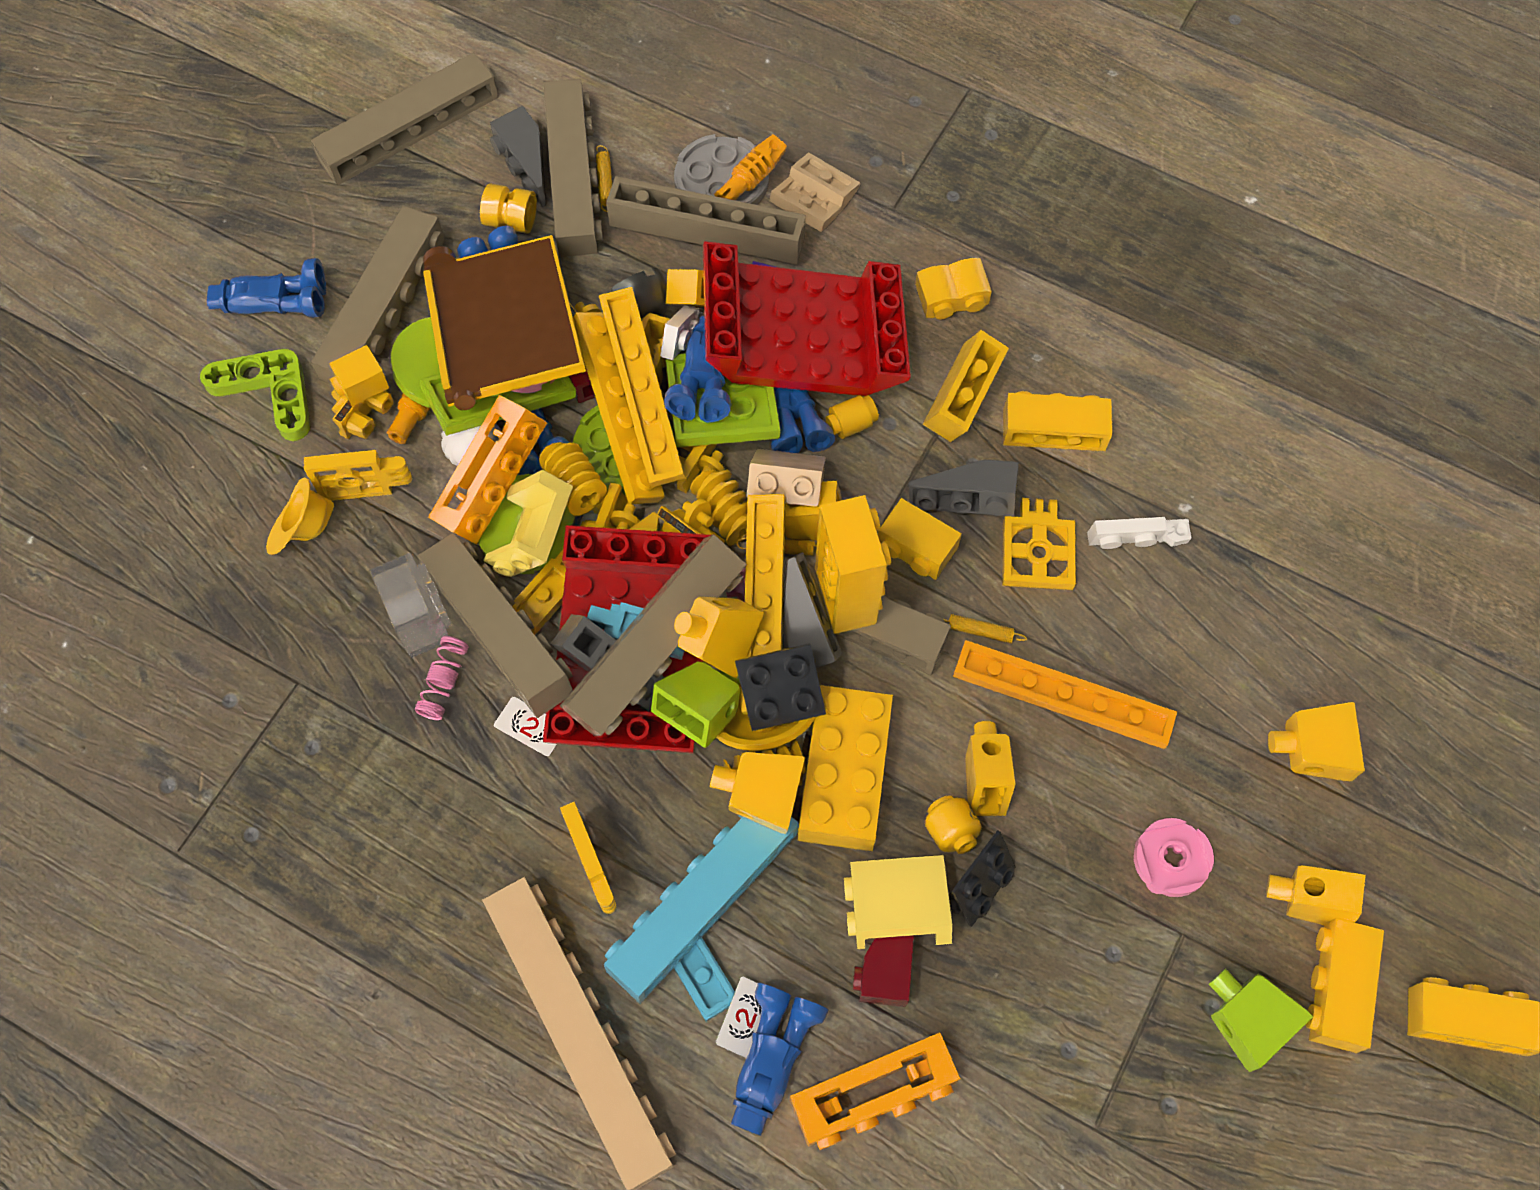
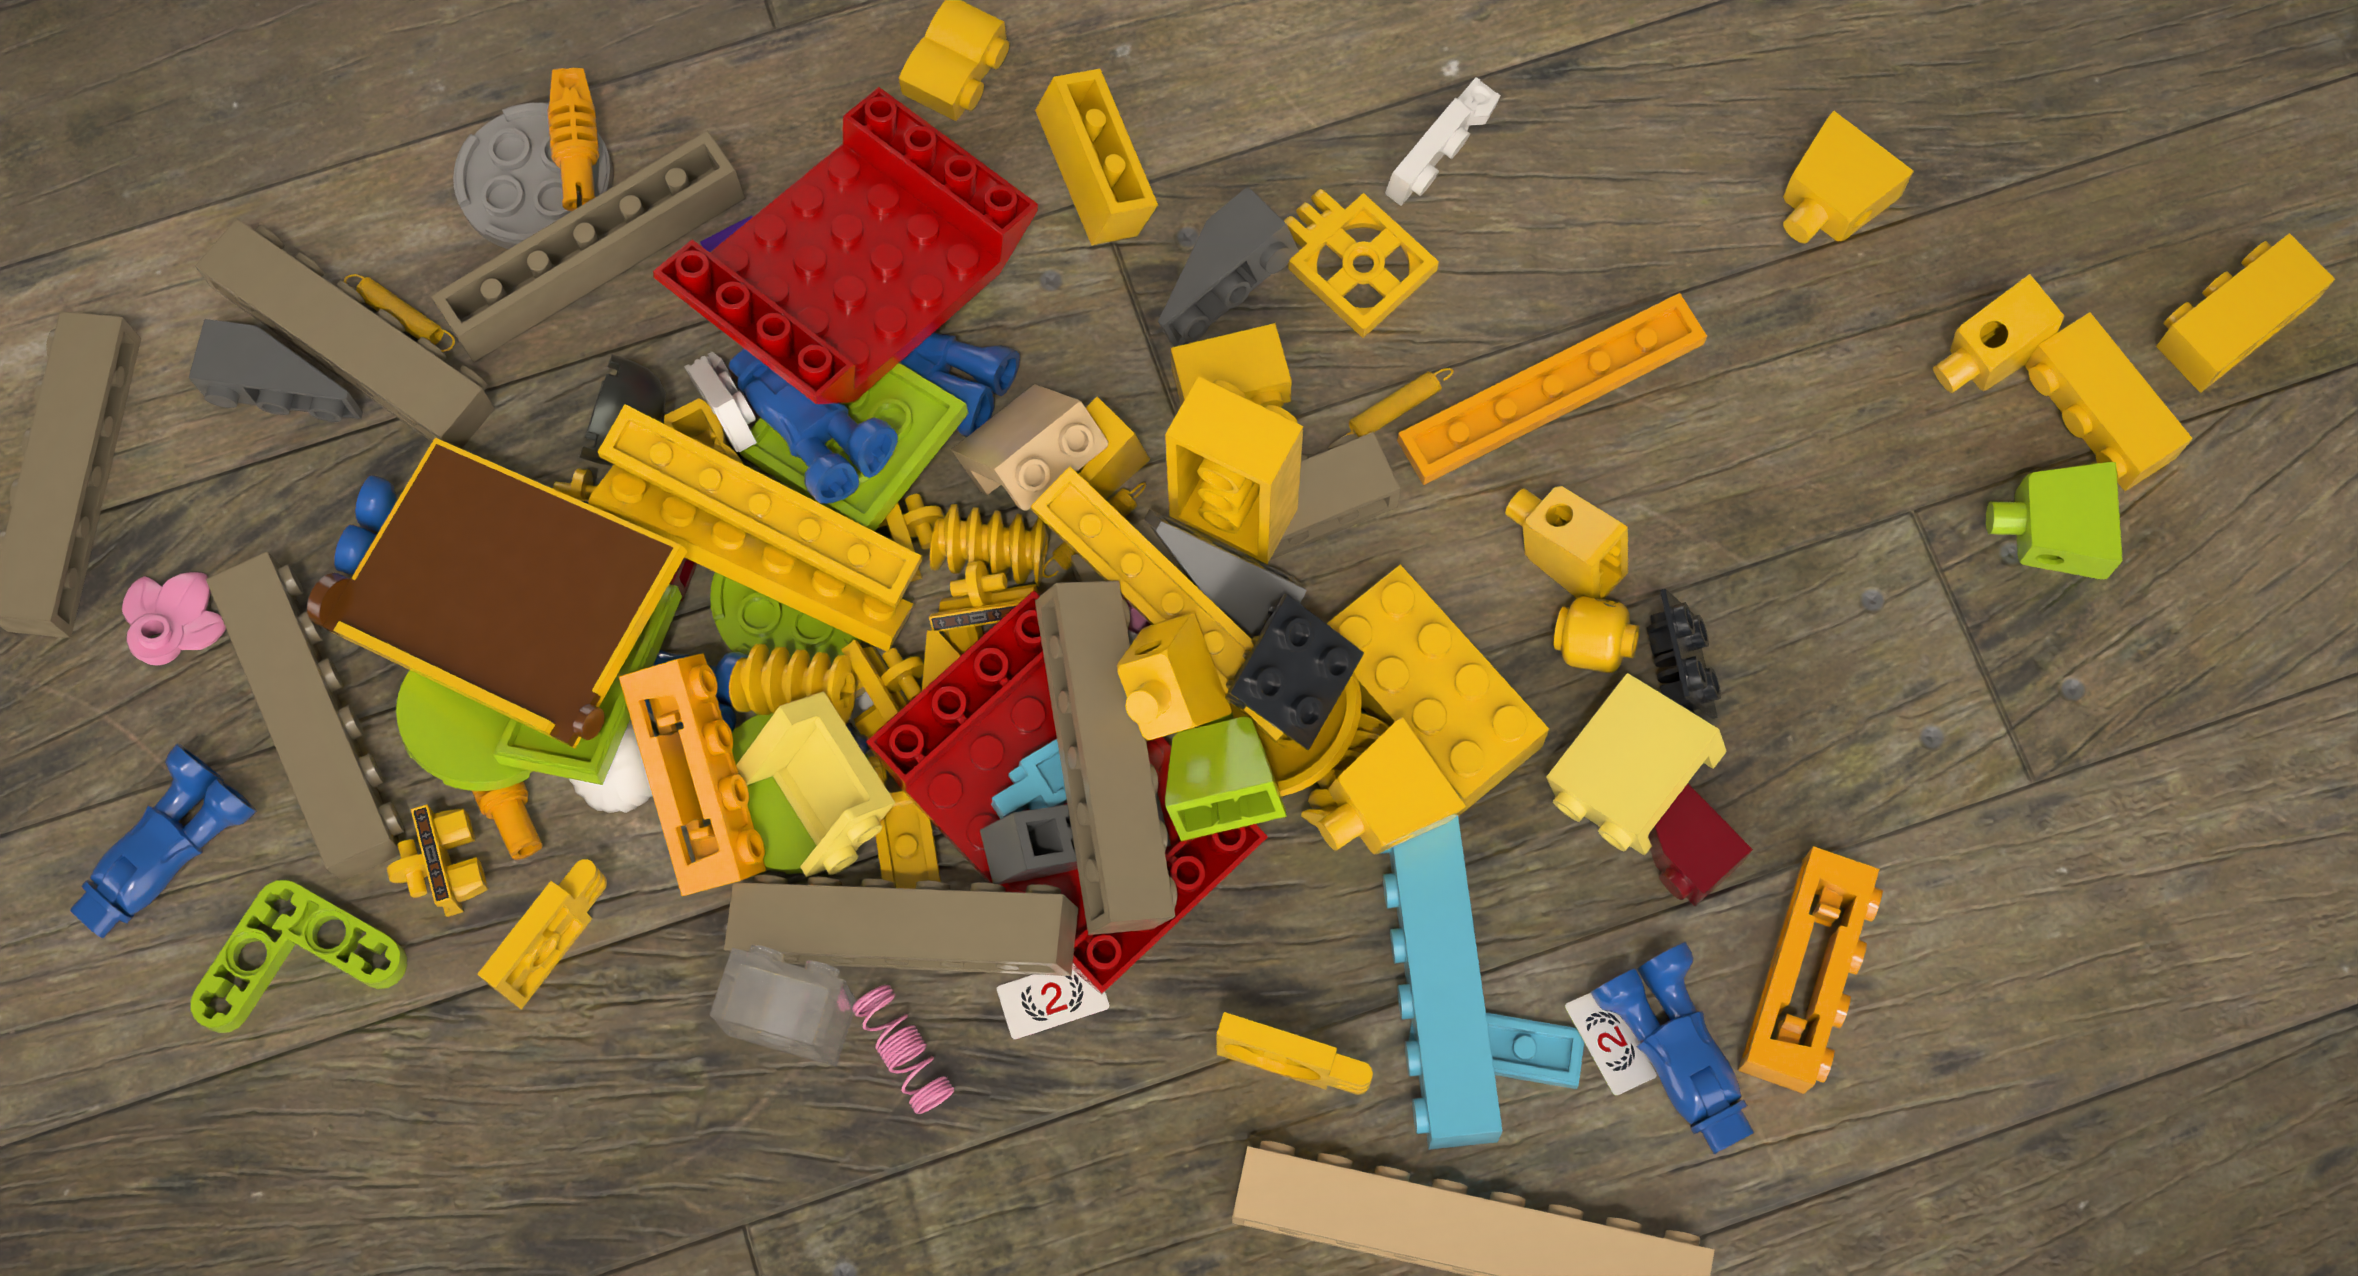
camera: 45 degrees left, 5 degrees up
(301, 518) = (526, 1052): yellow piece -> none
(358, 376) = (414, 824): yellow brick -> none
(375, 210) = (174, 611): none -> bright pink plate
(508, 208) = (333, 458): yellow wheel -> none
(685, 288) = (676, 342): yellow brick -> none
(815, 191) = (665, 93): tan slope -> none
(852, 416) = (1009, 310): yellow brick -> none
(1057, 421) = (1228, 101): yellow brick -> none
(1183, 839) = (1833, 474): bright pink plate -> none

